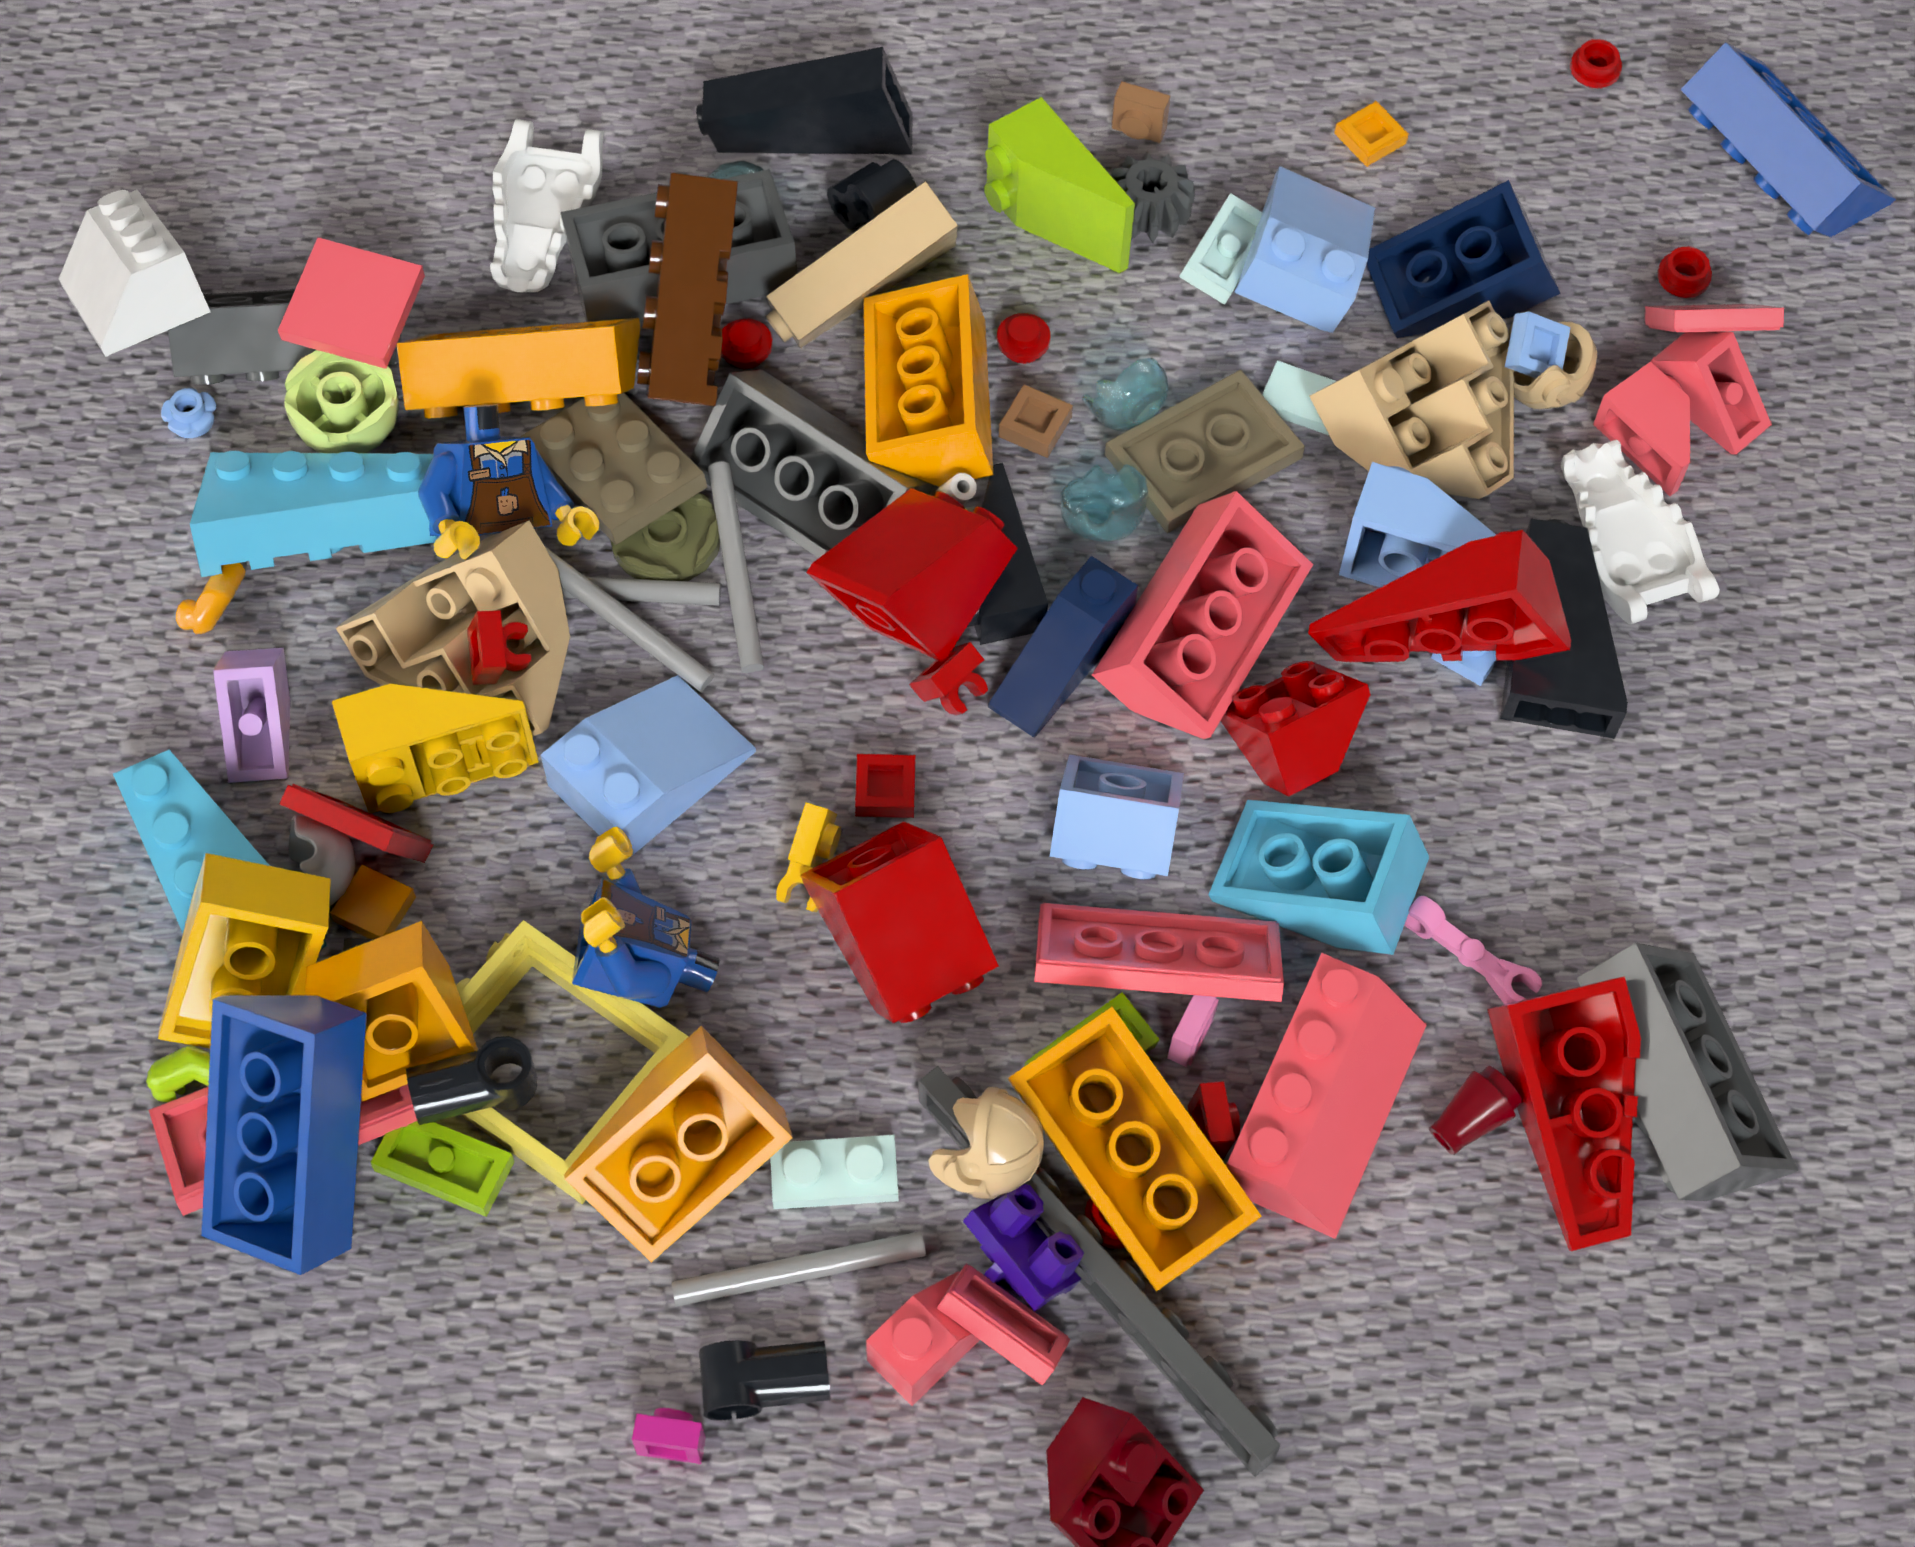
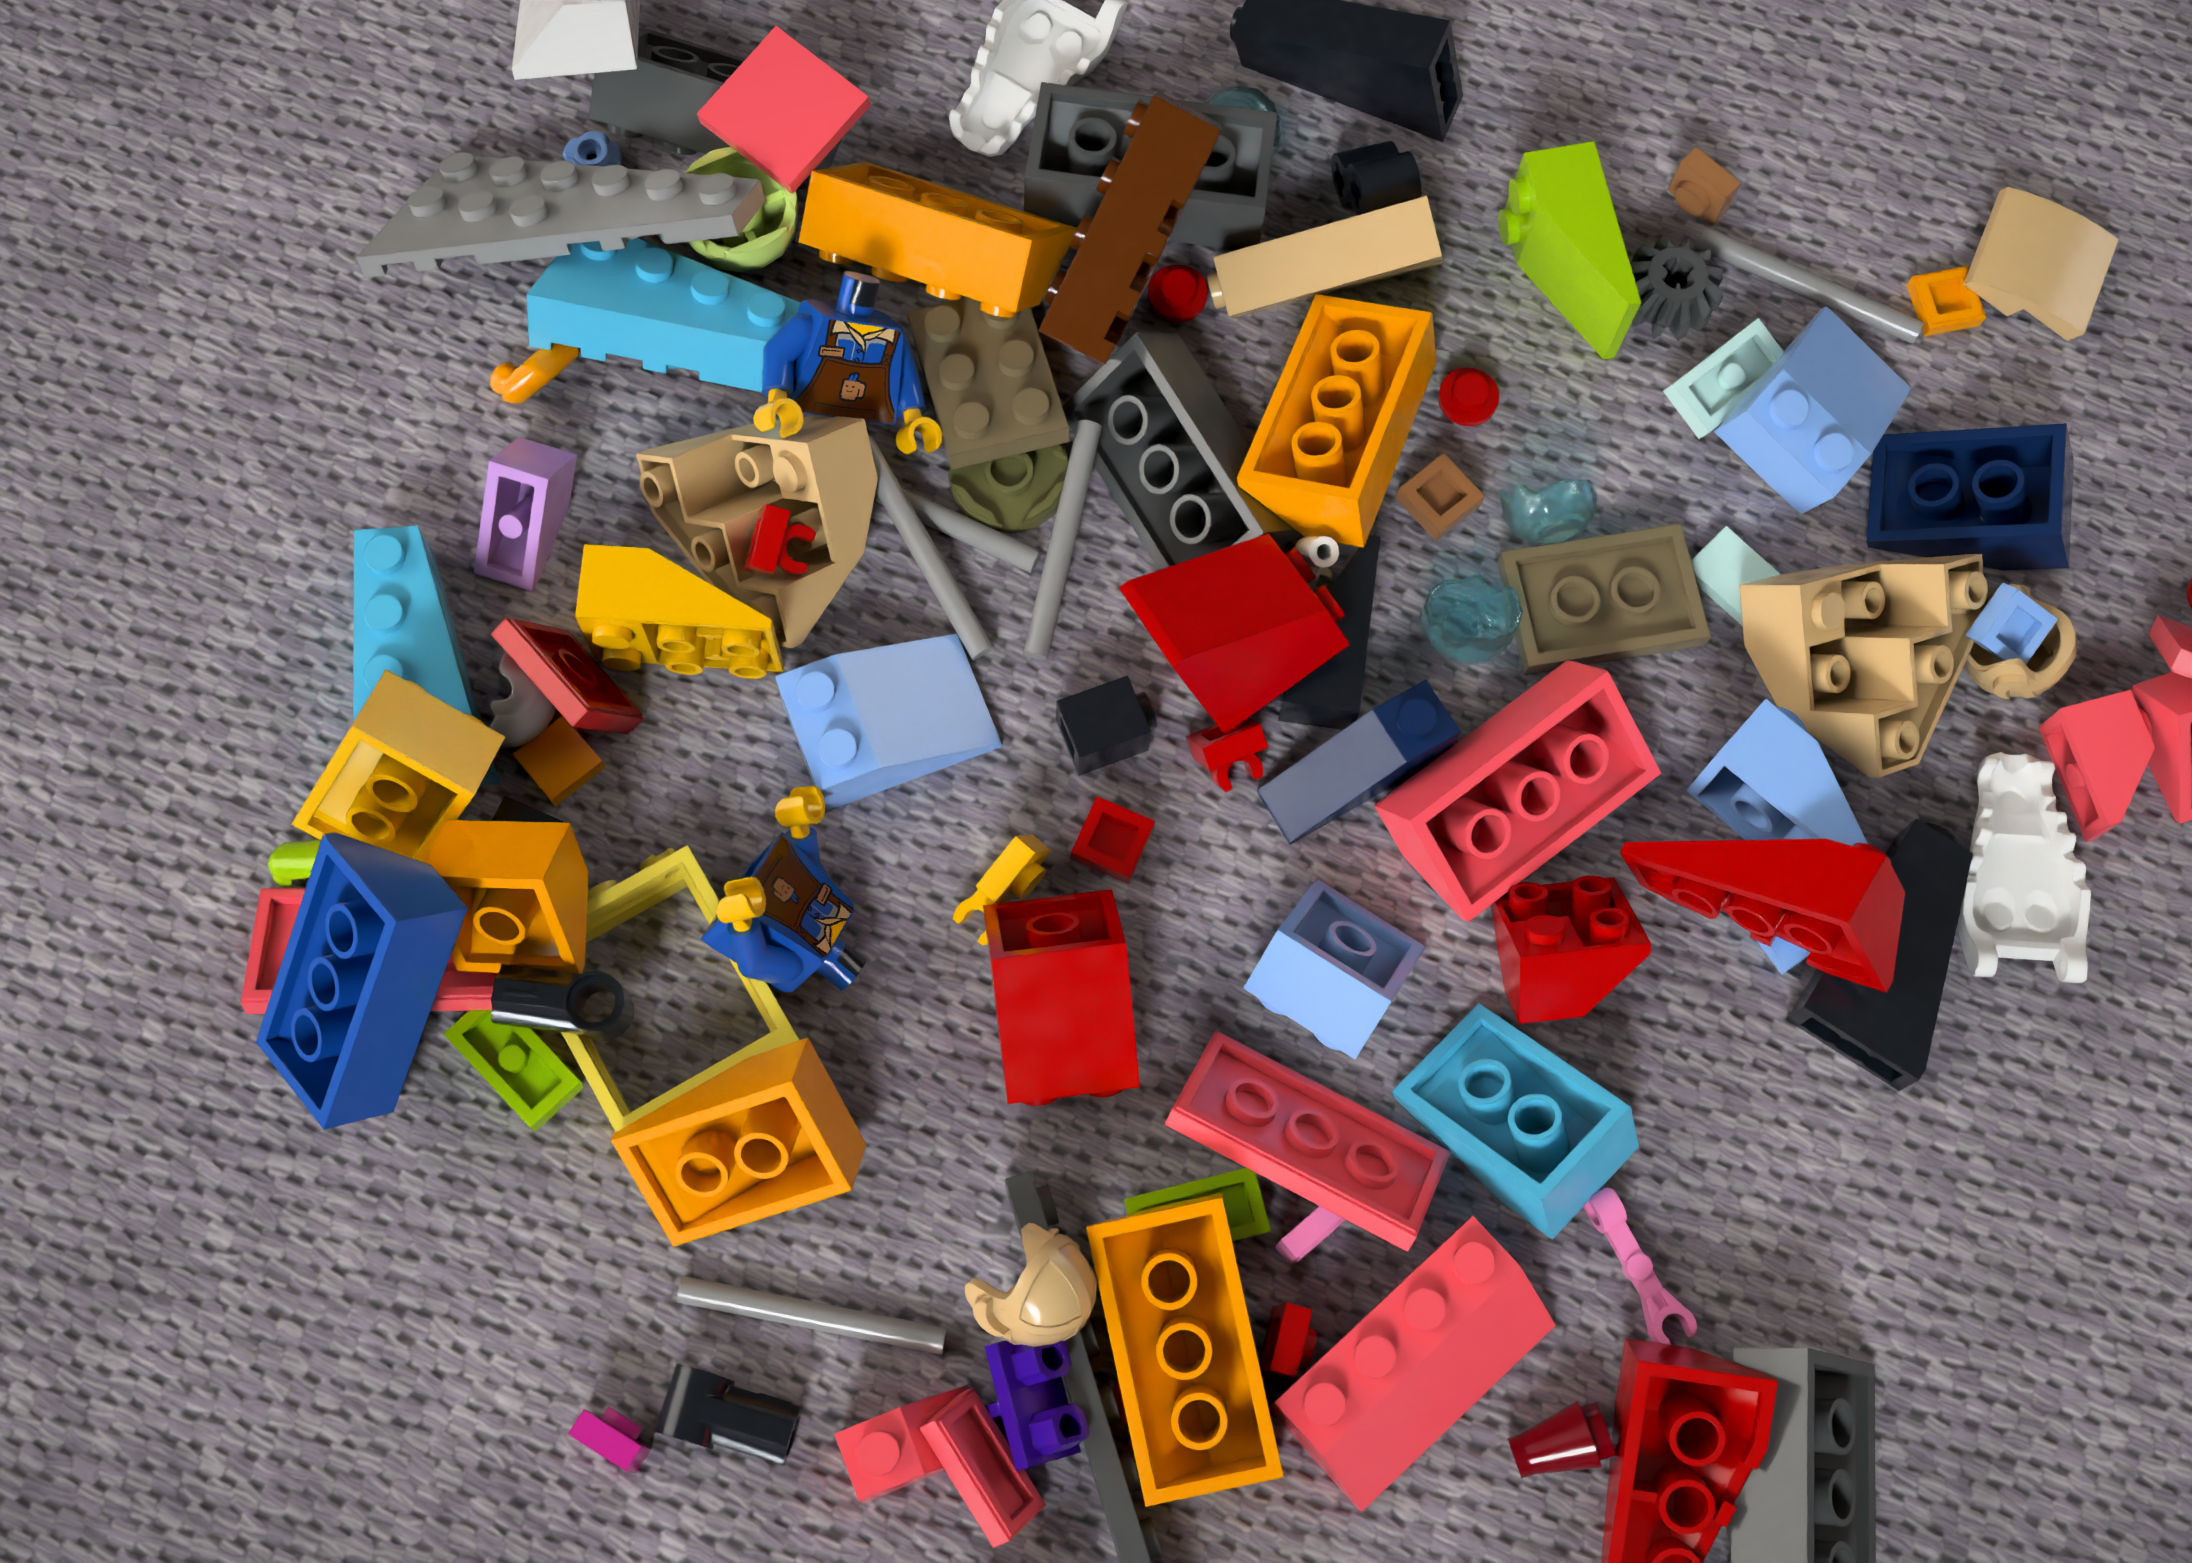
camera: 20 degrees right, 10 degrees up
(170, 457) = (539, 209): none -> light grey wing
(834, 1172) = (890, 1230): light aqua plate -> none
(837, 696) = (1105, 724): none -> black brick
(1260, 158) = (1809, 285): none -> light grey bar
(1432, 76) = (2041, 261): none -> tan slope

